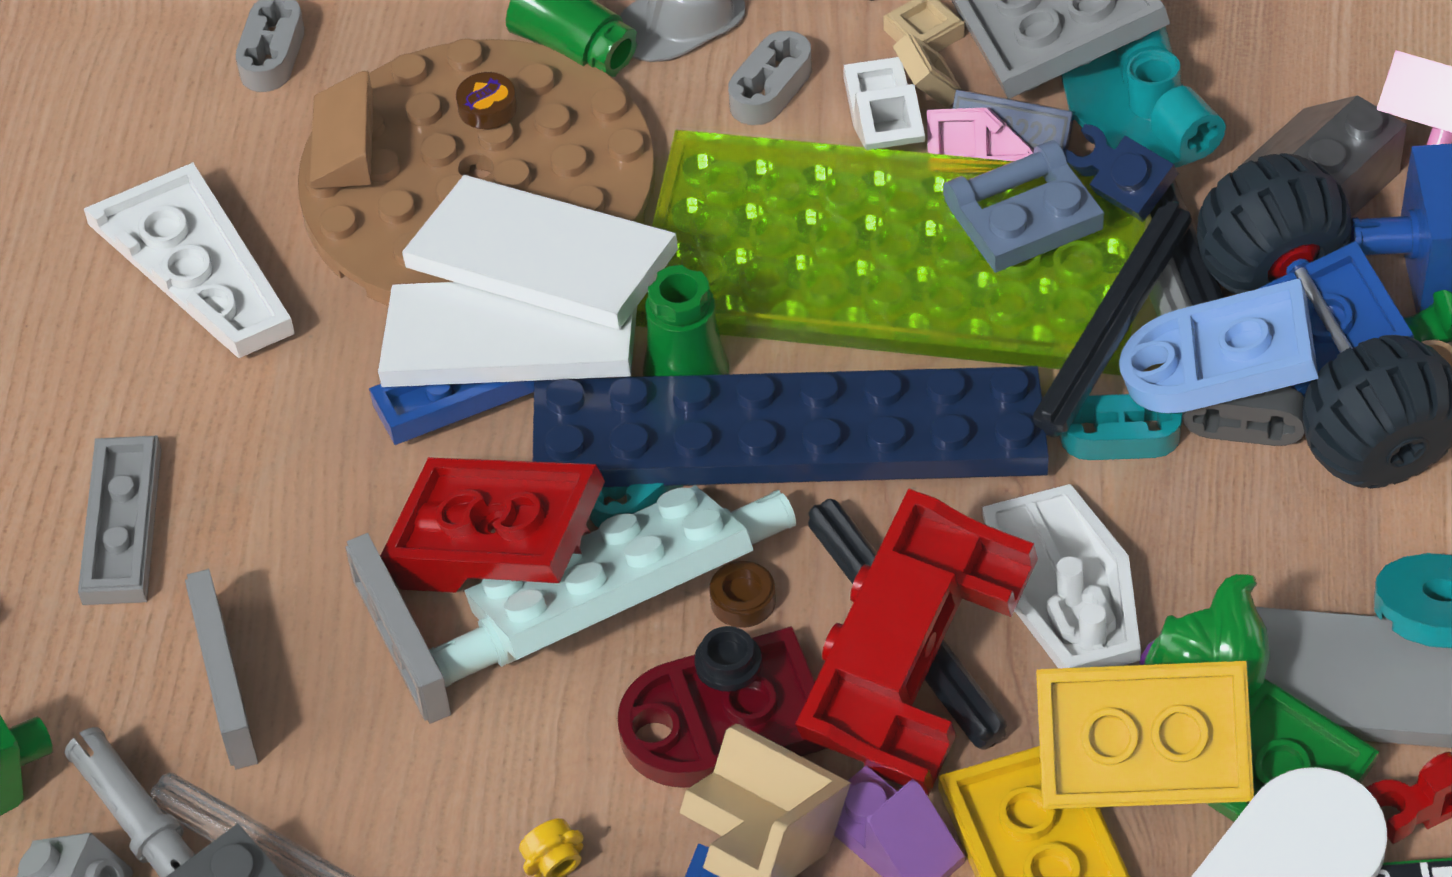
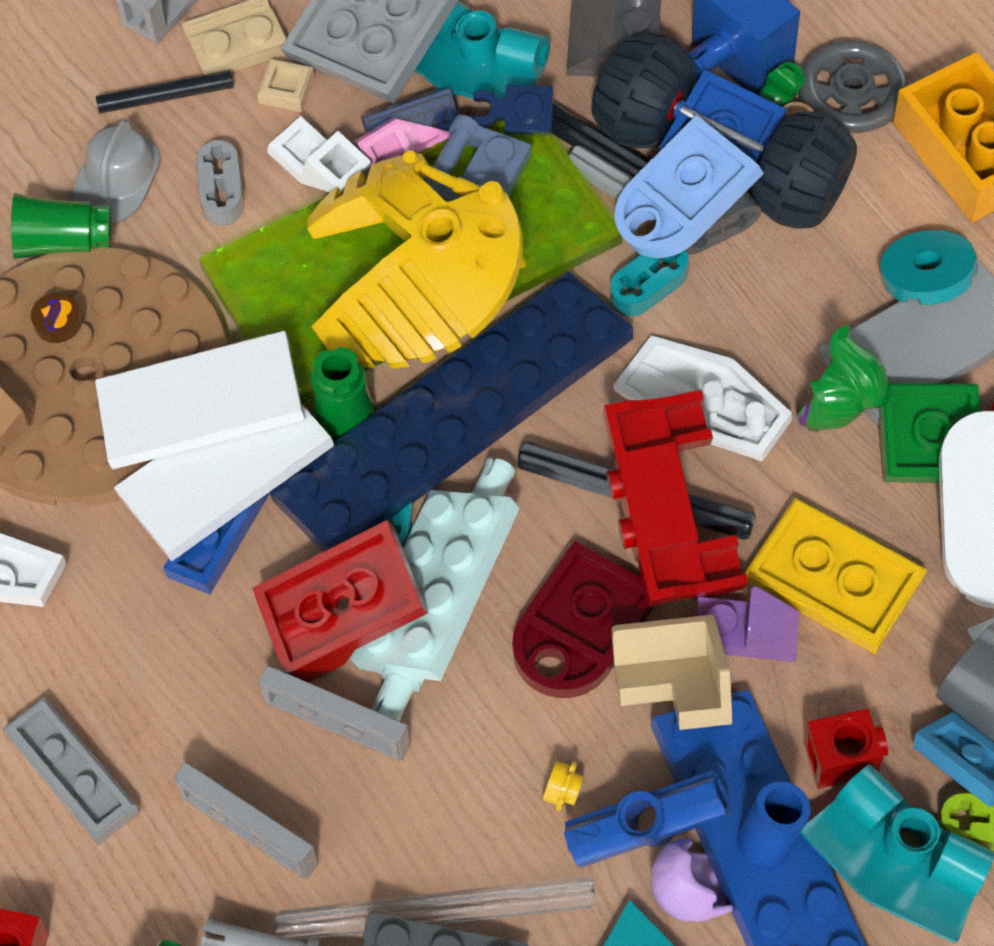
camera: 40 degrees left, 10 degrees up
(728, 659) = (563, 589): black plate -> none
(742, 594) = (524, 542): reddish brown tile -> none
(874, 270) = (427, 287): none -> yellow piece
(927, 69) = (323, 114): tan tile -> none
(1112, 319) = (597, 212): black axle -> none
(1144, 735) = (854, 466): yellow tile -> none

